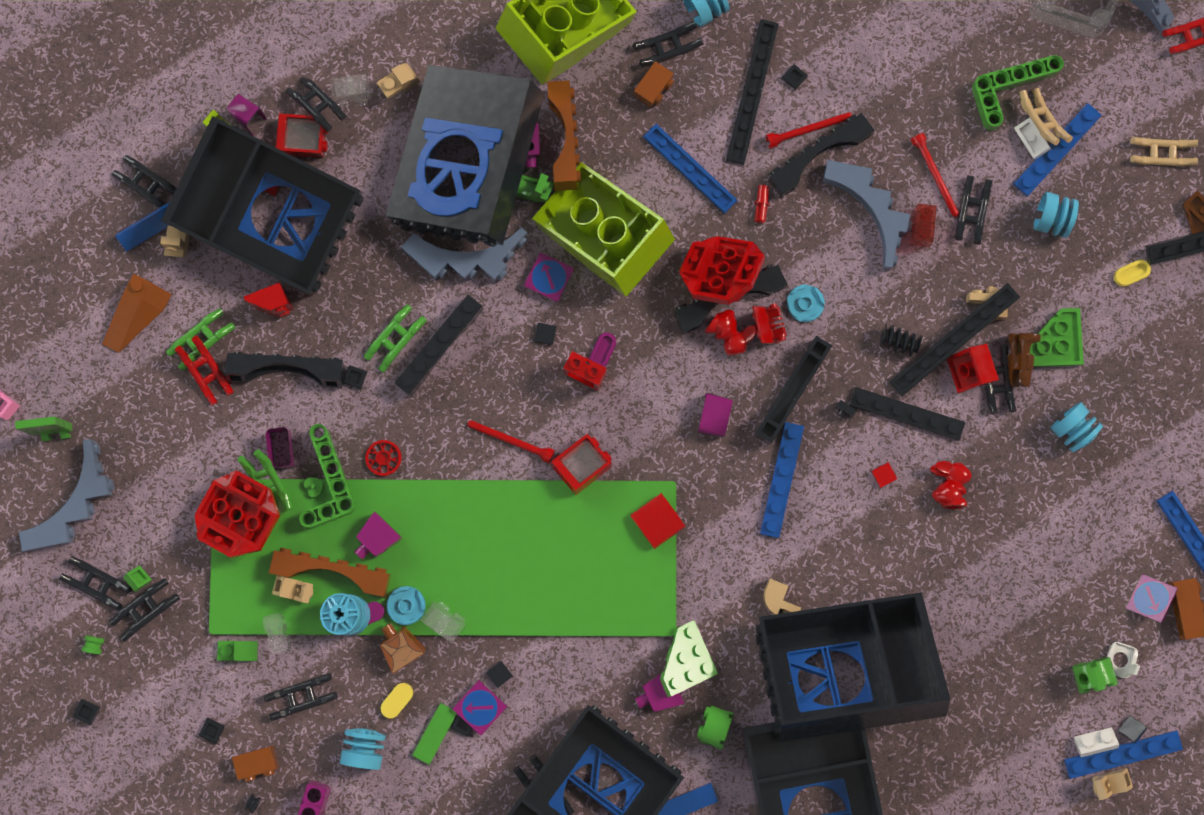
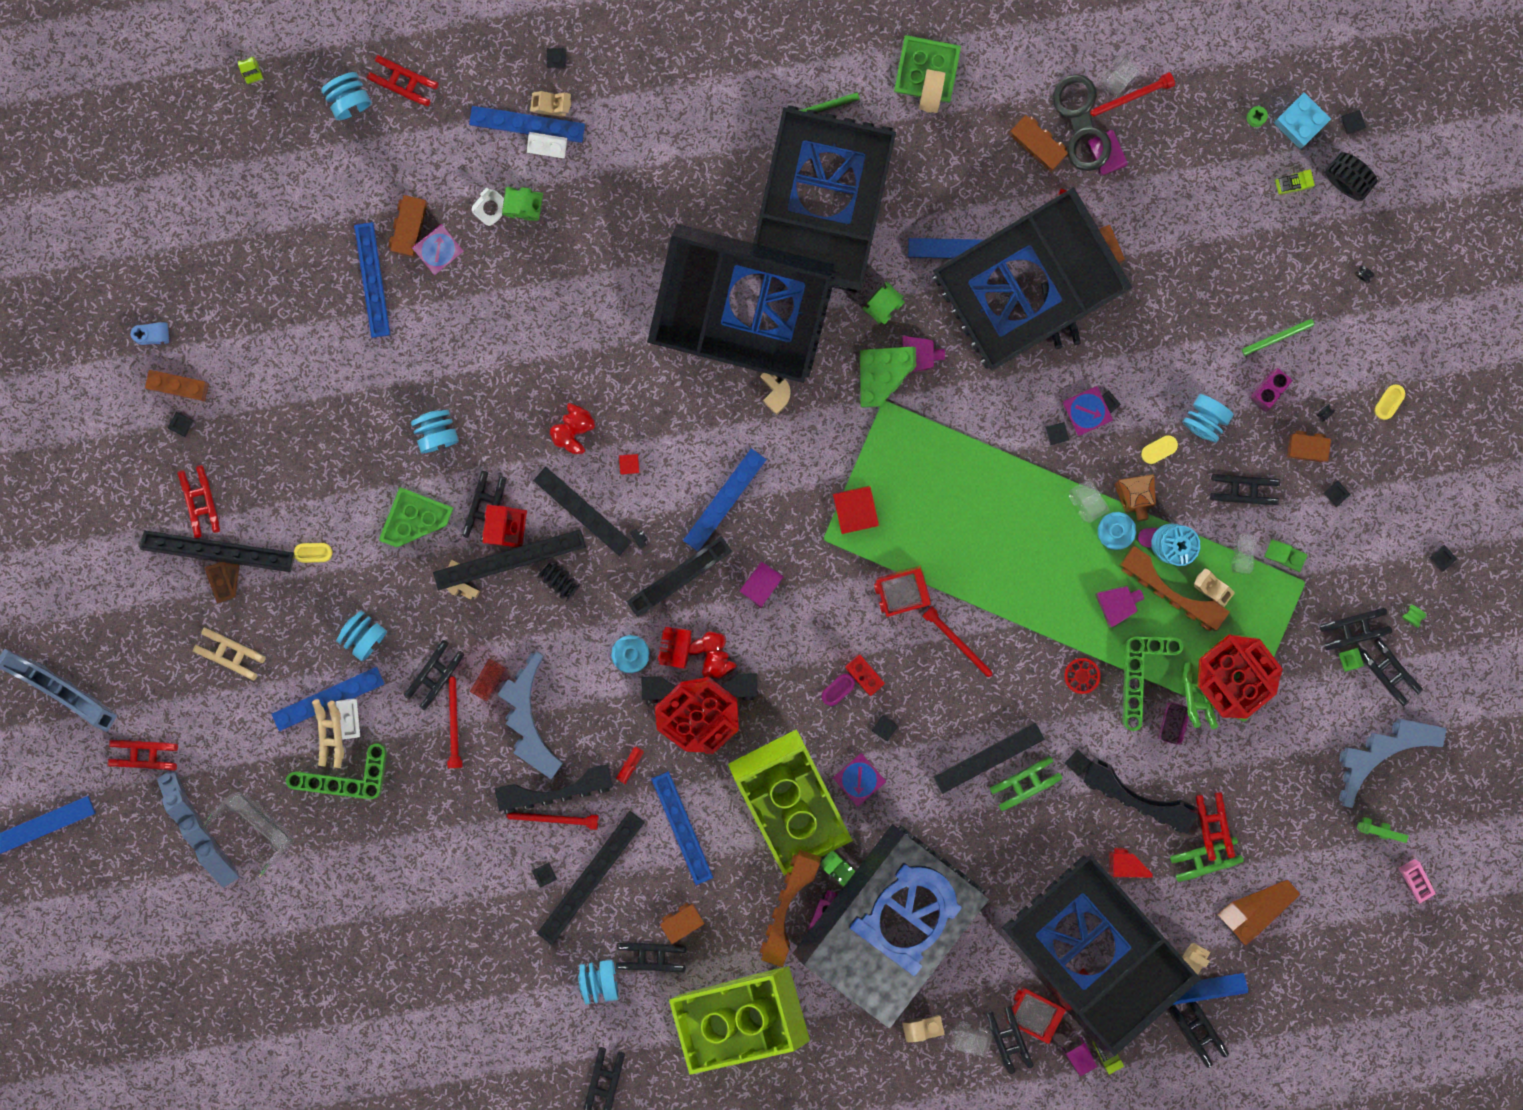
camera: 155 degrees left, 5 degrees up
(314, 486) = (1156, 675): bright green piece -> none
(434, 733) = (1137, 405): bright green tile -> none
(465, 264) = (958, 839): sand blue arch -> none
(1021, 365) = (457, 516): reddish brown piece -> none
(1132, 729) = (509, 142): tile -> none

